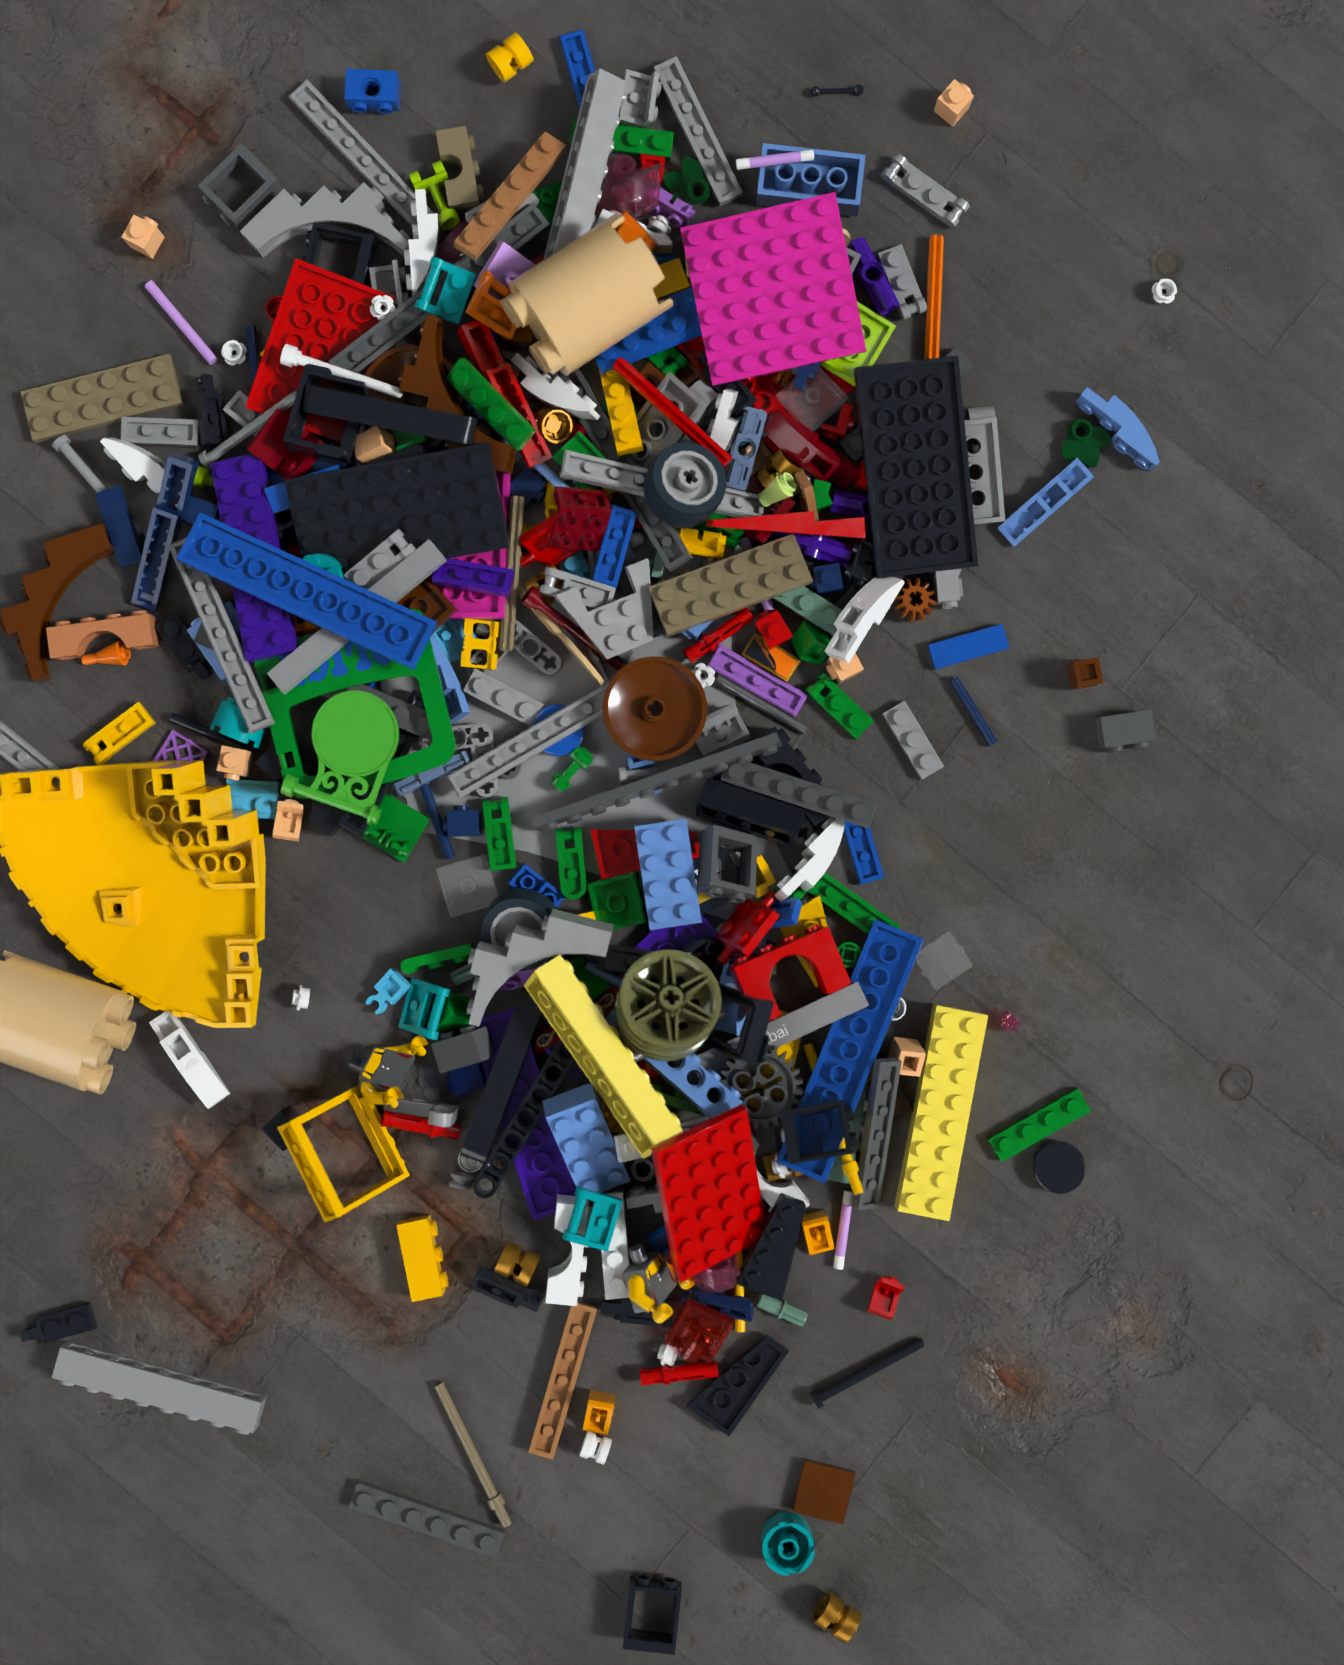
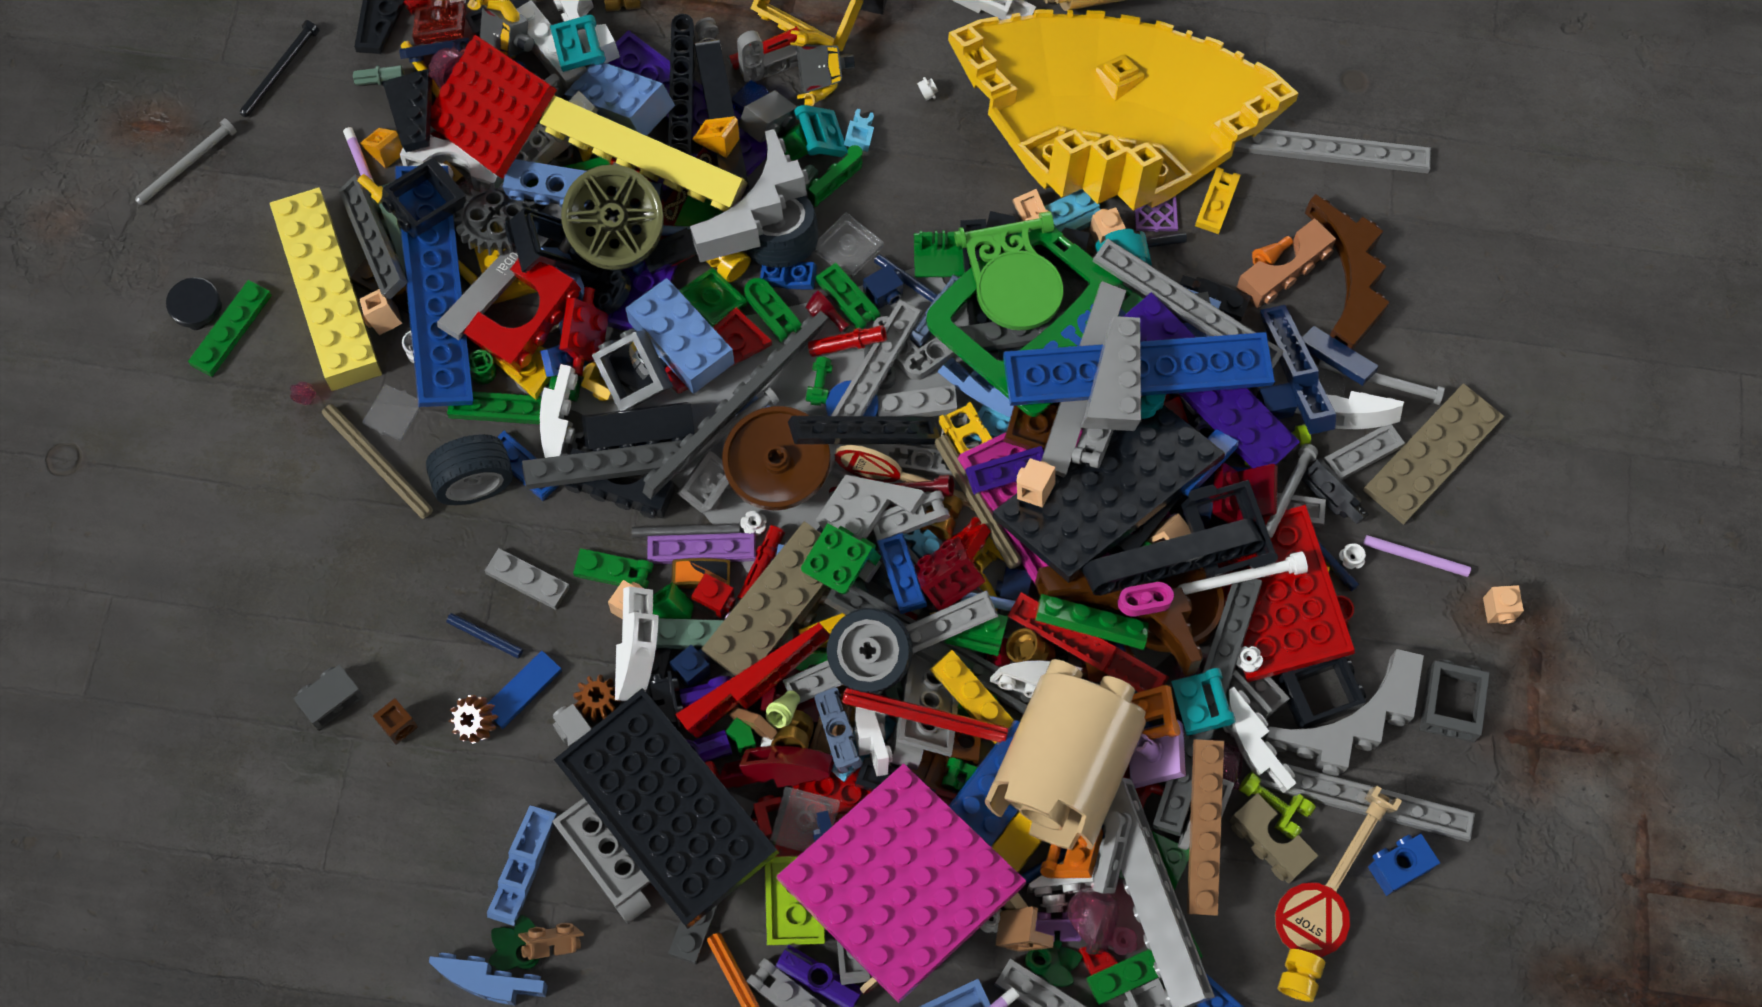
camera: 145 degrees right, 20 degrees down
(334, 583) = (1117, 381): none -> light grey wedge
(439, 388) = (1143, 598): none -> dark pink plate
(459, 544) = (1035, 482): none -> light nougat brick
(466, 94) = (1314, 914): none -> piece
(519, 782) = (858, 338): none -> red pin
(524, 1046) = (718, 135): none -> light orange slope
(528, 838) = (818, 303): none -> dark red bar
(568, 688) = (863, 430): none -> black plate
(596, 216) = (1112, 852): none -> light grey plate
(659, 580) = (839, 558): none -> green bracket
(700, 205) = (1018, 932): none -> medium nougat panel
(885, 1297) = (294, 126): red bracket -> none
(913, 852) = (469, 469): none -> black wheel
(979, 921) = (377, 461): none -> dark tan axle
(1000, 1318) = (225, 129): none -> light grey bar
(1022, 639) = (472, 729): none -> dark orange gear
(1052, 427) = (539, 939): none -> medium nougat hinge

